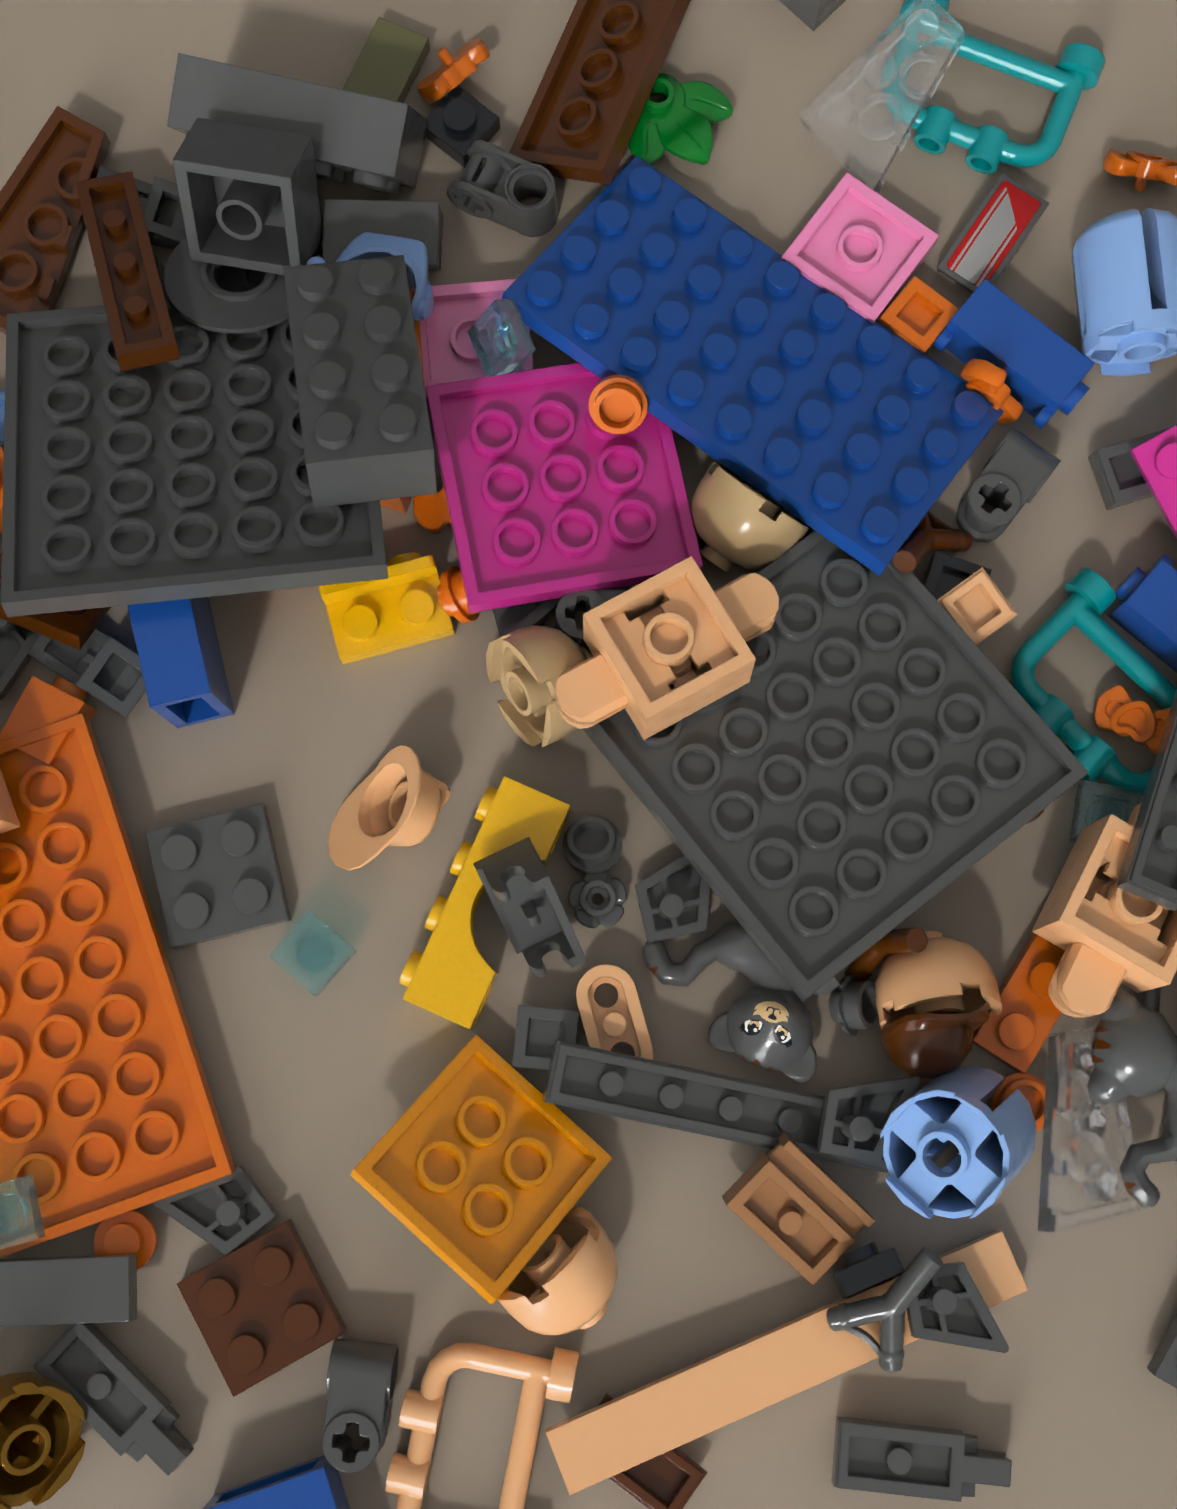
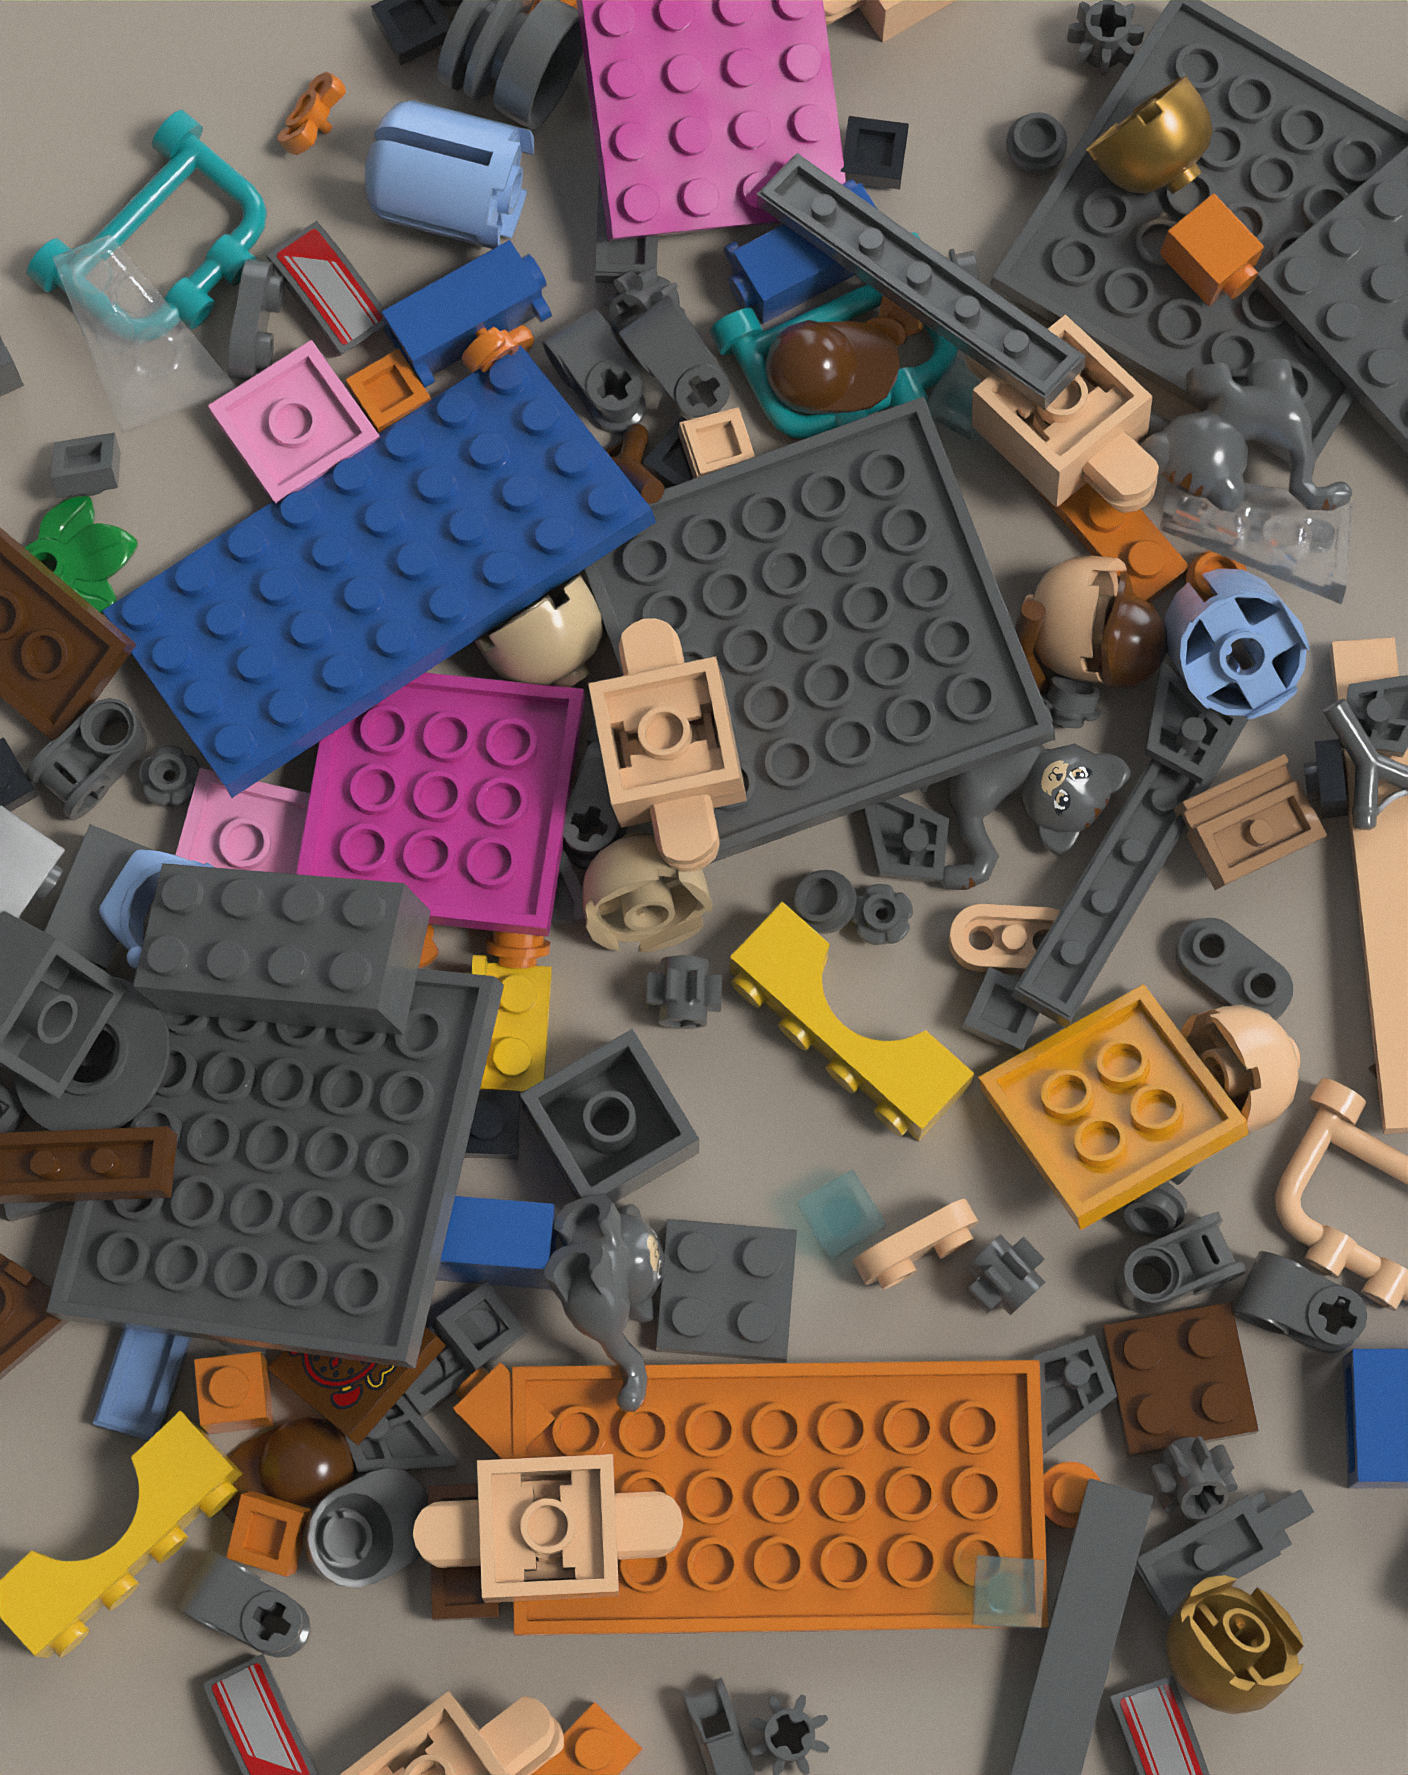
camera: 70 degrees left, 5 degrees down
(167, 1351) = (1194, 1478): none -> dark grey gear
(191, 758) = (606, 1275): none -> dark grey animal
(299, 623) = (495, 1126): none -> black plate
(300, 1118) = (1005, 1274): none -> dark grey gear
(322, 722) = (610, 1121): none -> dark grey brick
(323, 1046) = (941, 1232): none -> light nougat plate
(363, 1278) = (1189, 1261): none -> dark grey piece
(389, 808) = (720, 1089): light nougat piece -> none
(401, 1242) = (1156, 1211): none -> dark grey plate
(464, 748) = (683, 992): none -> dark grey gear
(501, 338) = (270, 807): clear light blue plate -> none
(510, 245) = (168, 792): none -> dark grey plate
(529, 905) = (871, 973): dark grey hinge -> none
(618, 404) = (388, 712): orange plate -> none
(656, 1238) = (1230, 974): none -> dark grey plate
(757, 96) = (85, 465): none -> dark grey plate
(940, 181) = (250, 343): none -> dark grey plate
(1046, 538) = (675, 354): none -> dark grey piece
(1080, 503) = (637, 295): none -> dark grey gear
(1088, 684) = (832, 366): none -> reddish brown cap

